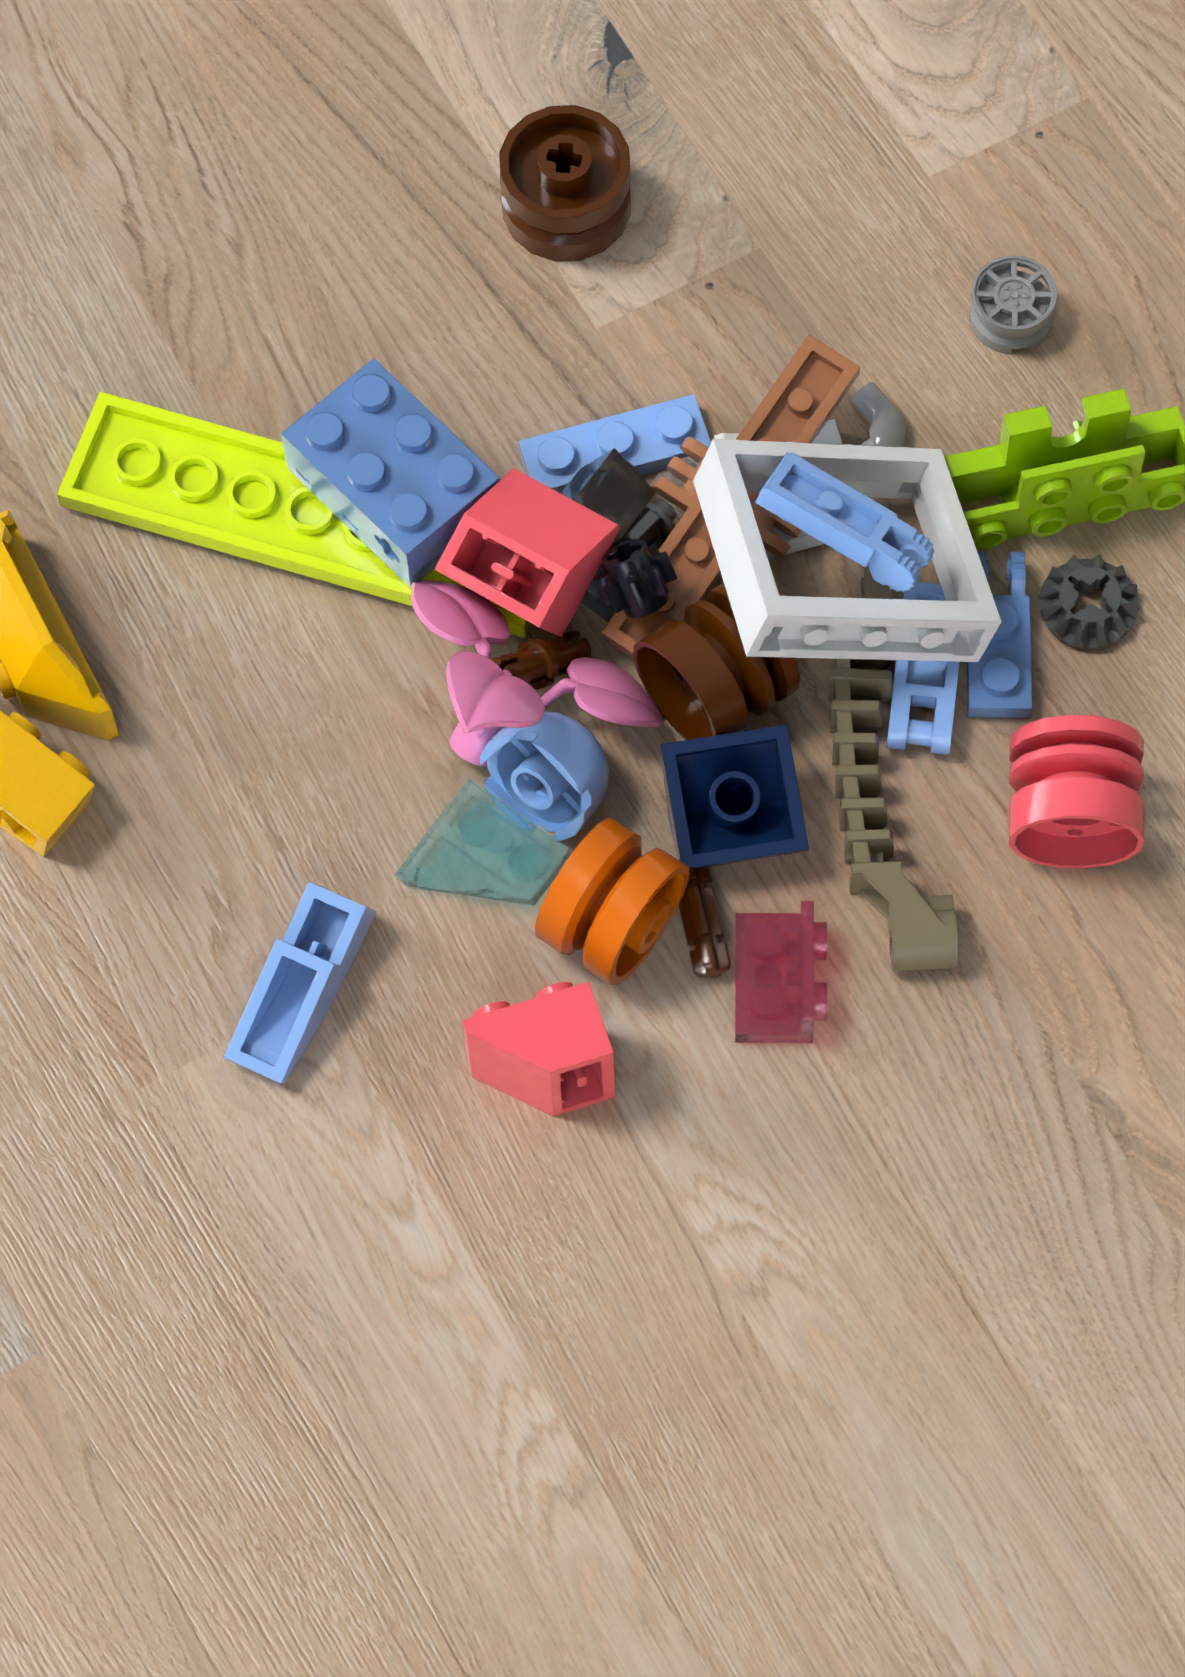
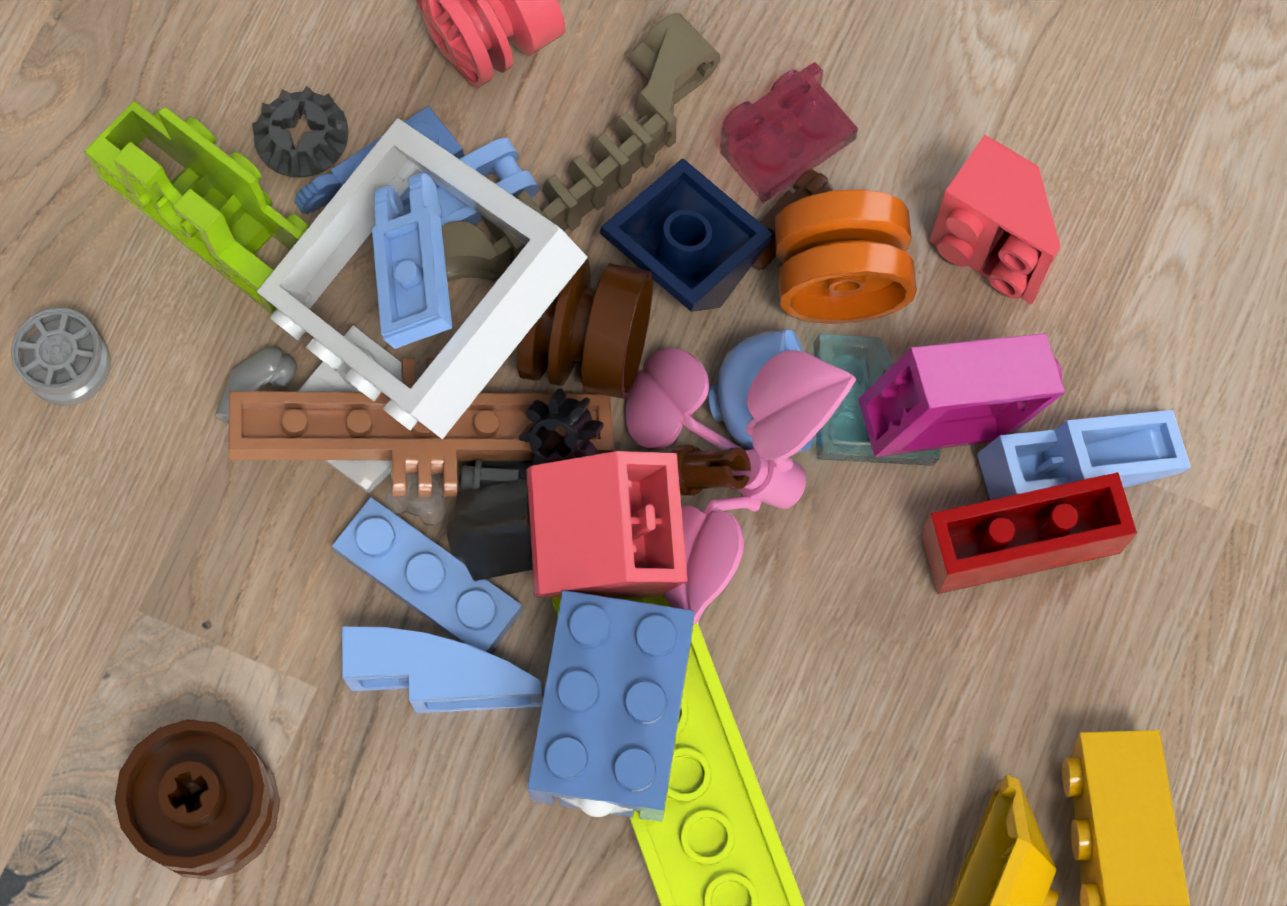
camera: 130 degrees left, 5 degrees up
(272, 871) = (1028, 533): none -> red brick
(416, 890) = (960, 394): none -> dark pink window
(536, 396) = (437, 671): none -> light blue slope

